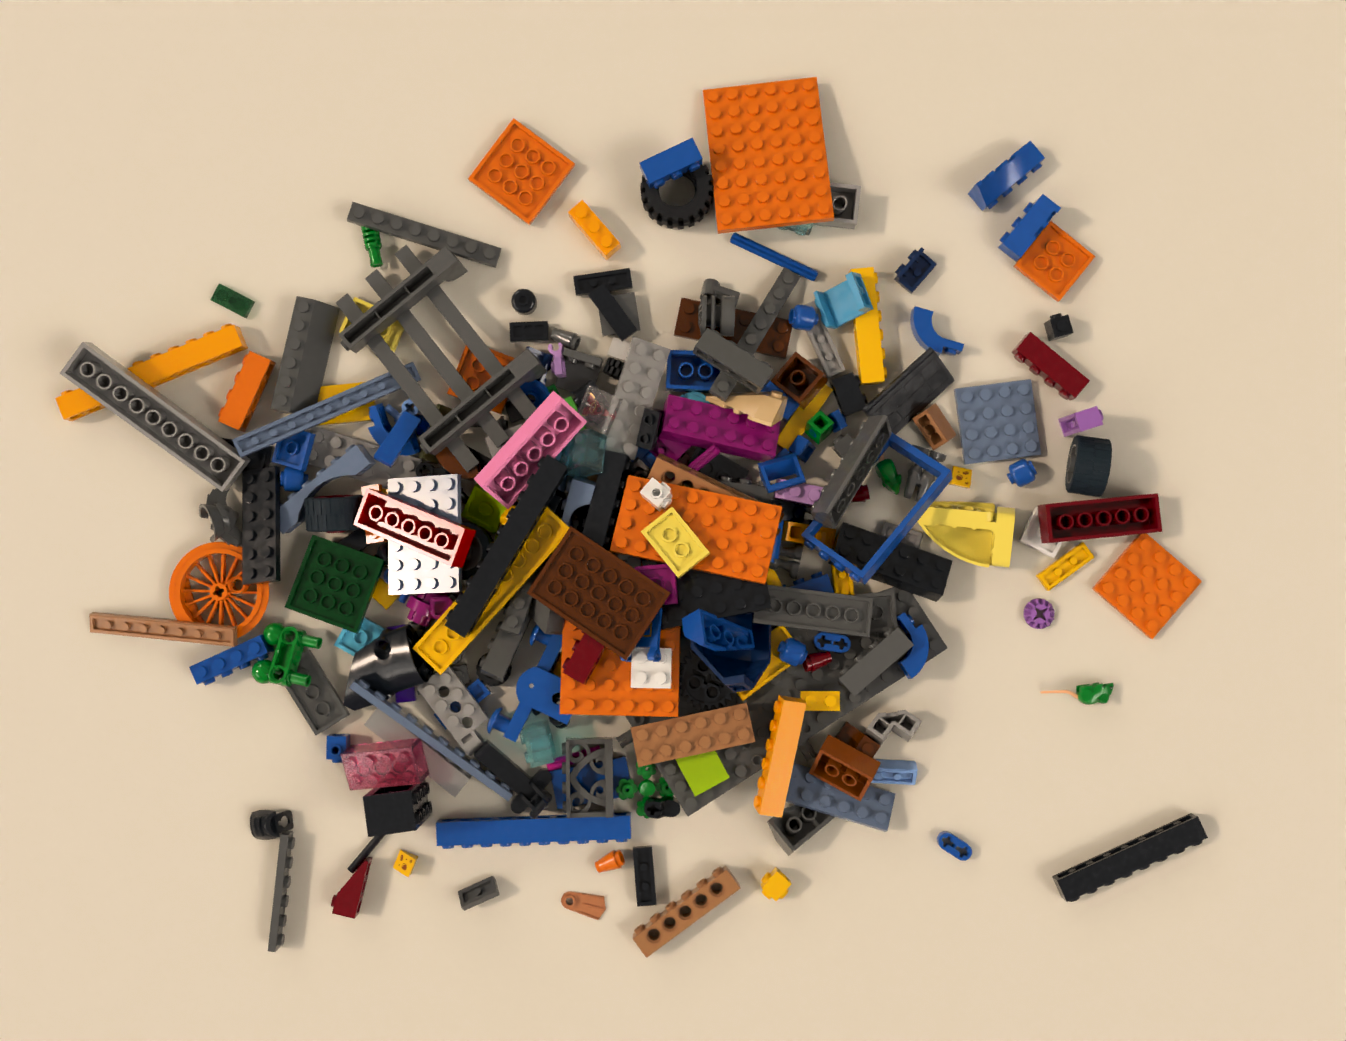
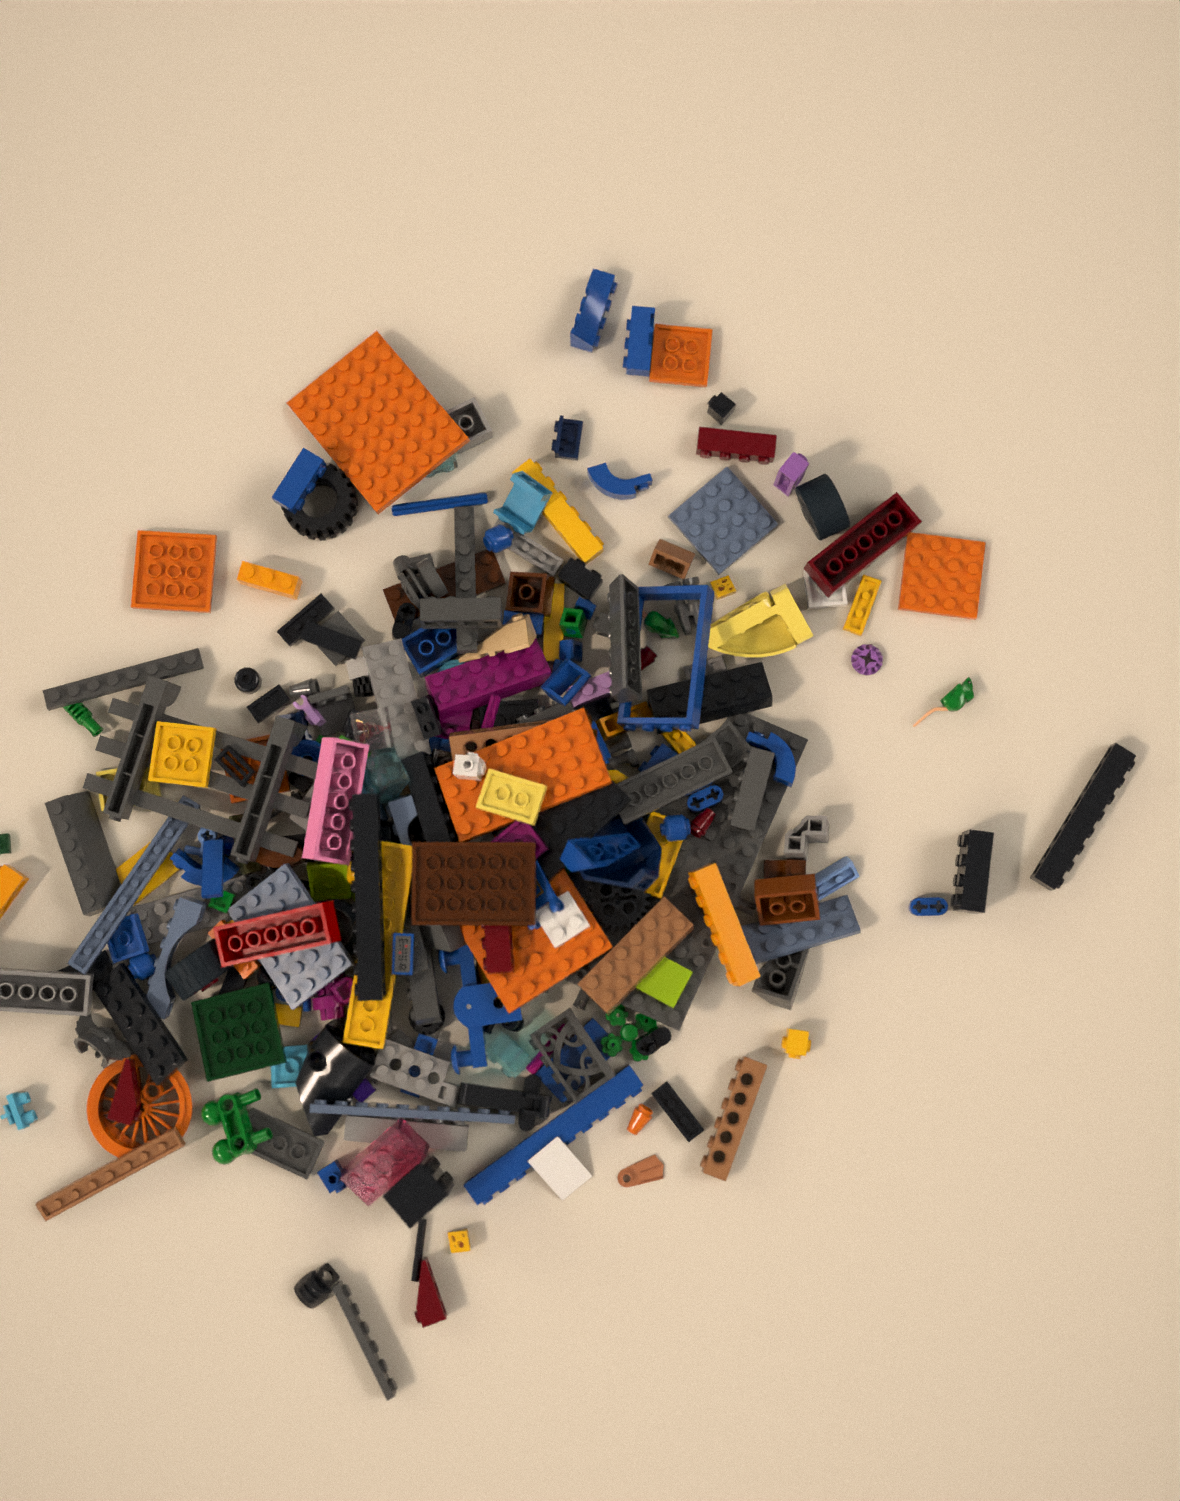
camera: 30 degrees left, 5 degrees down
(120, 529) = (15, 1111): none -> medium azure hips
(213, 578) = (126, 1100): none -> dark red slope
(230, 659) = (185, 1166): blue brick -> none
(246, 391) = (52, 915): orange brick -> none
(387, 472) = (222, 903): none -> green plate
(431, 329) = (182, 754): none -> yellow plate
(472, 383) = (247, 777): none -> black tile
(478, 893) = (541, 1224): dark grey plate -> none
(505, 610) = (403, 953): none -> tile
(521, 859) = (559, 1168): none -> white sticker
(687, 330) = (407, 614): none -> black piece
(821, 700) = (728, 854): yellow plate -> none
(911, 391) = (632, 541): black piece -> none
(1009, 843) = (972, 871): none -> black brick
(1021, 472) = (772, 549): blue head -> none

